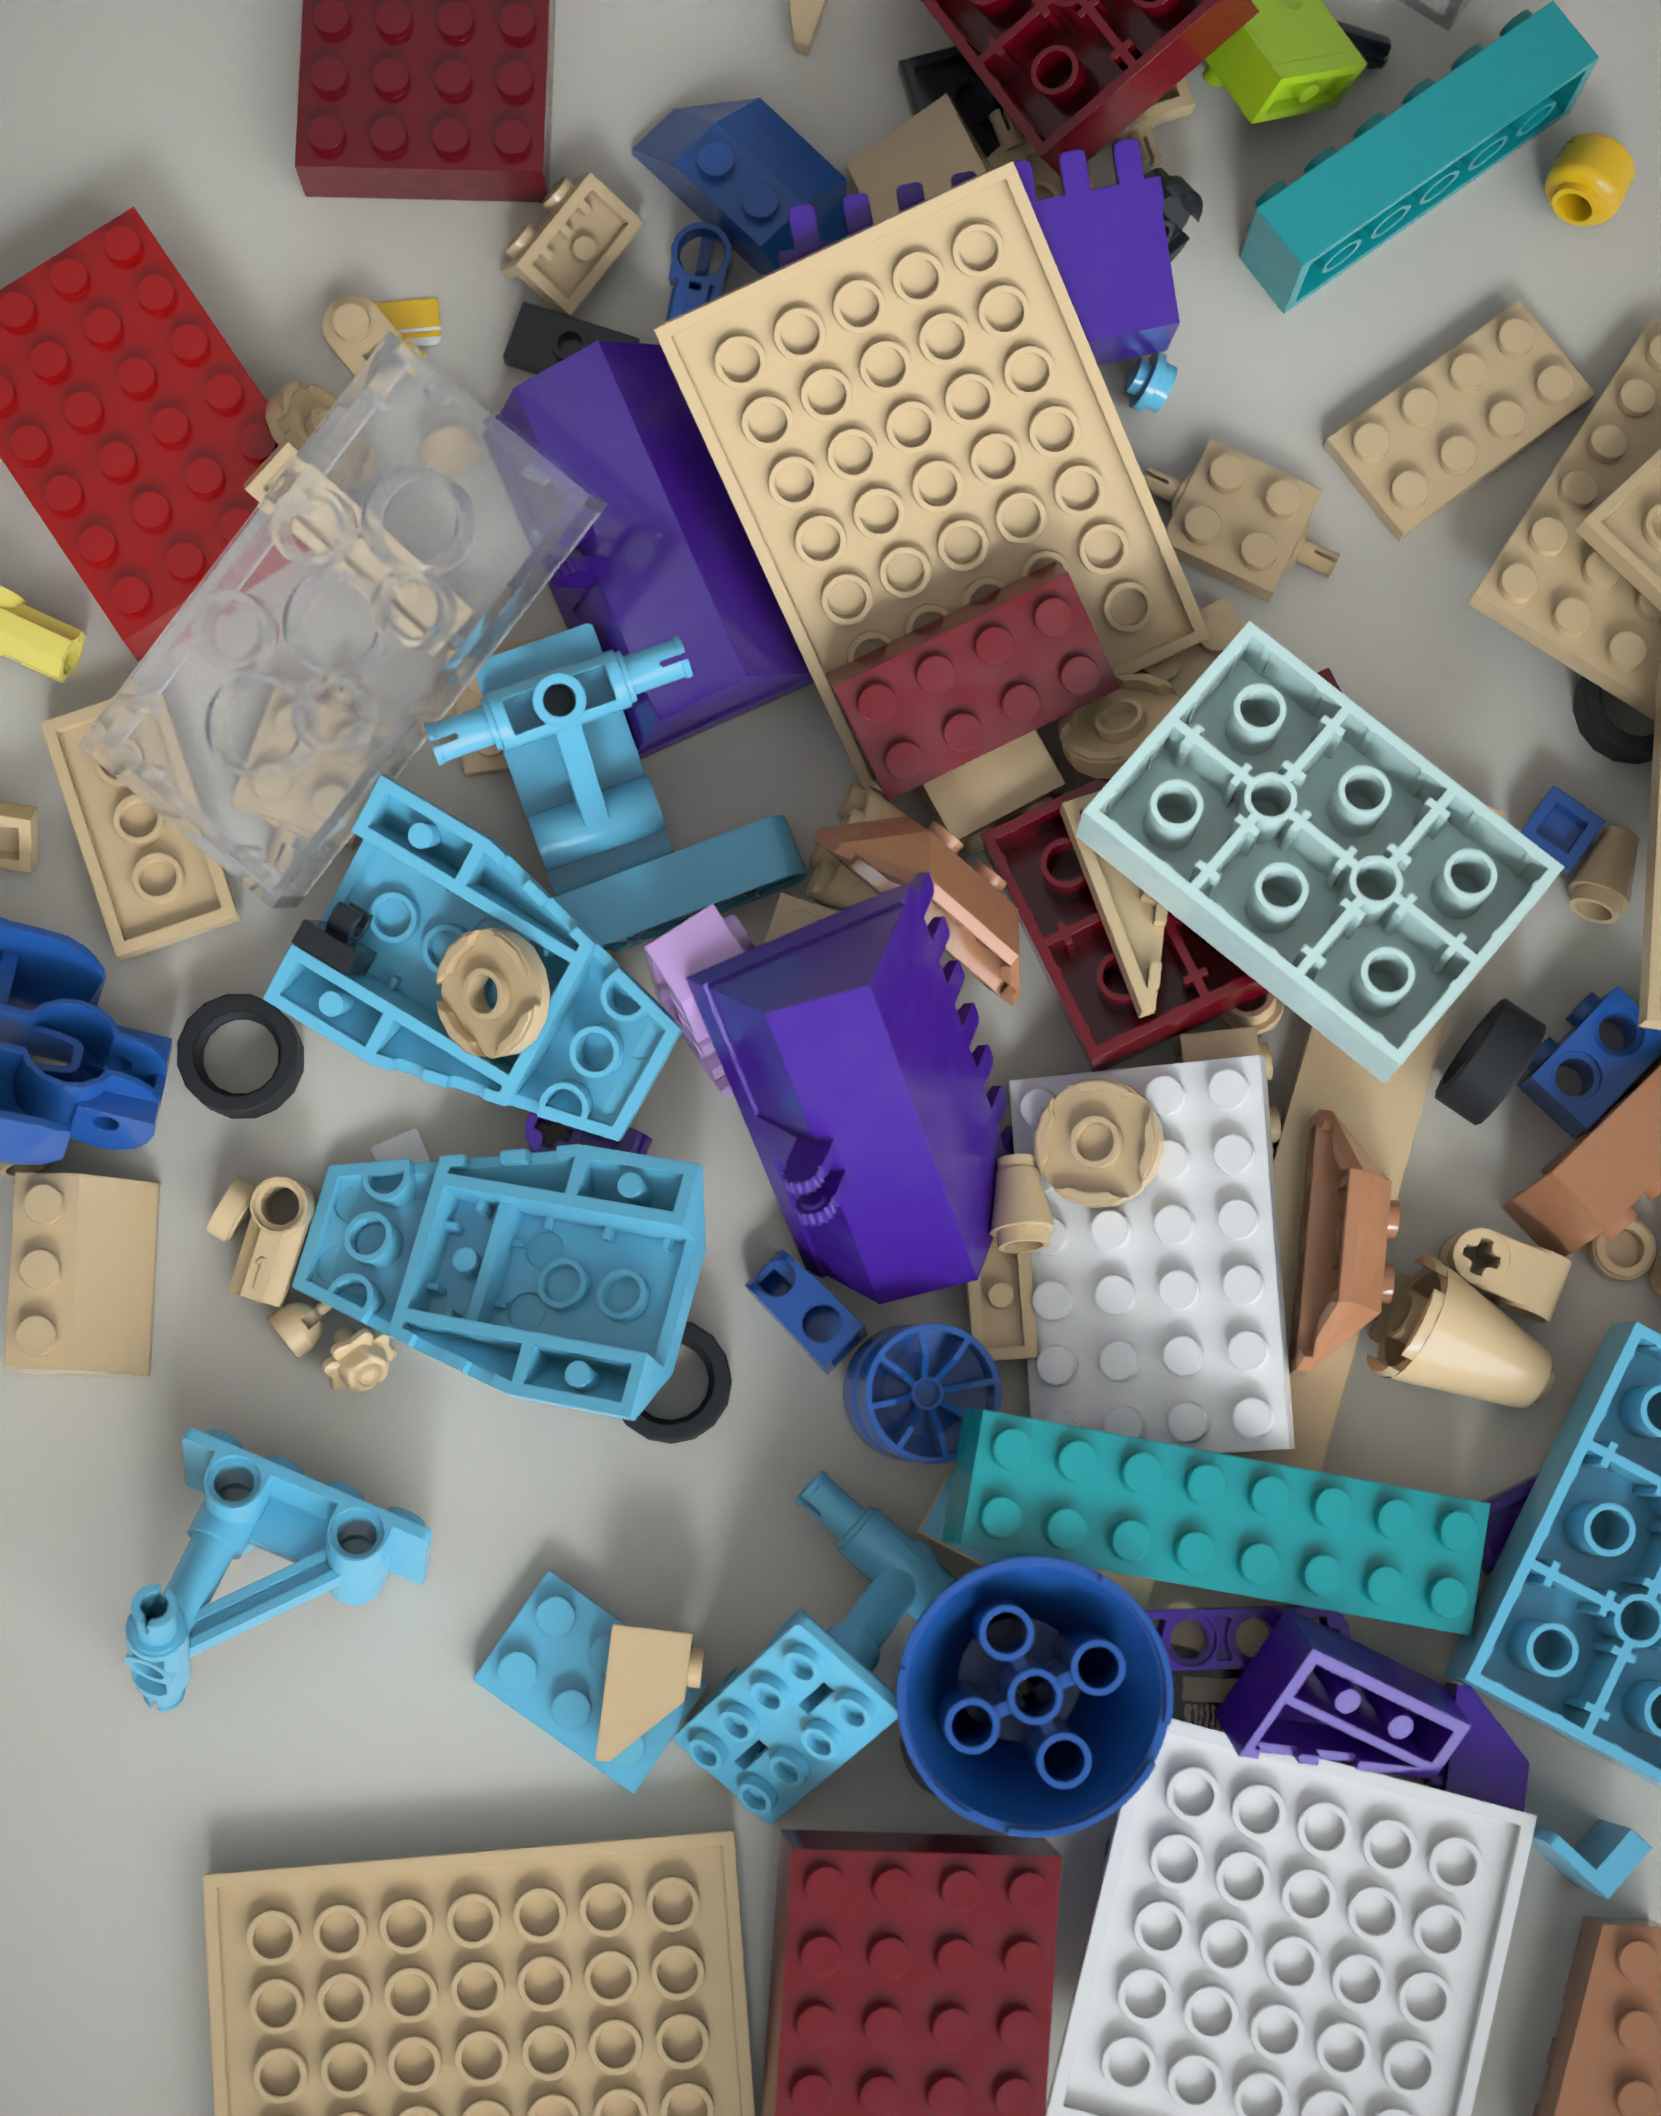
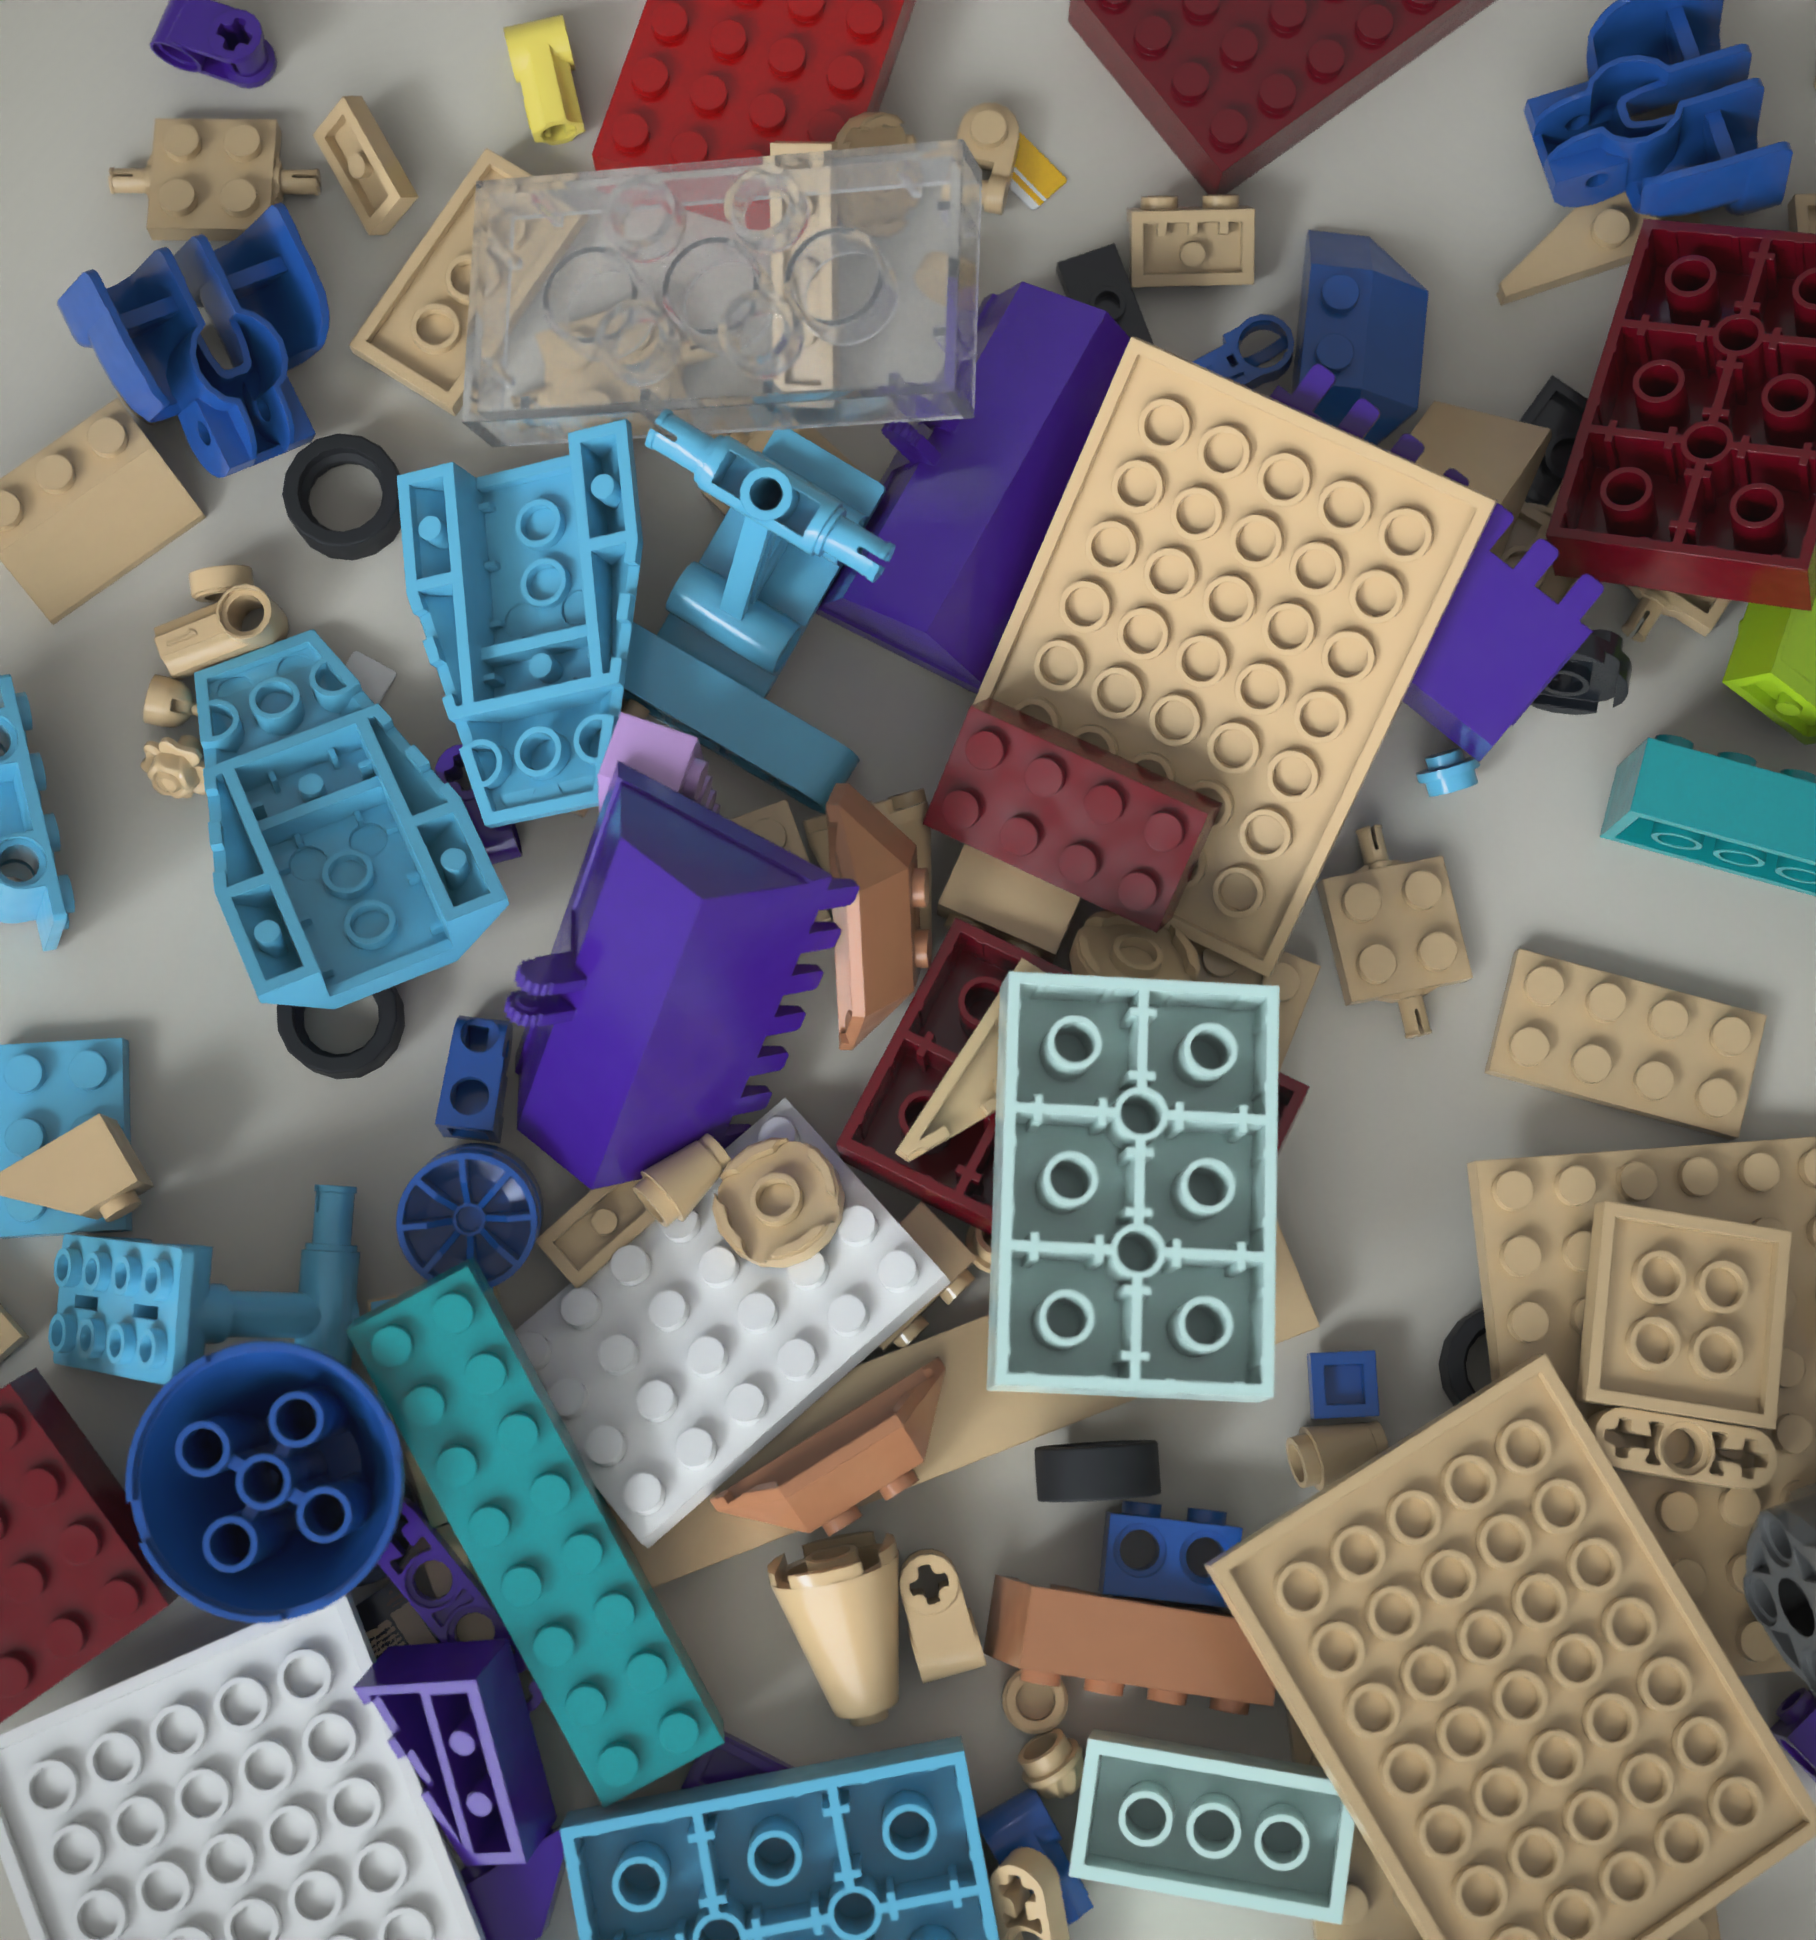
camera: 55 degrees right, 0 degrees up
(338, 939) = (483, 495): black tile -> none
(520, 987) = (523, 668): tan tile -> none

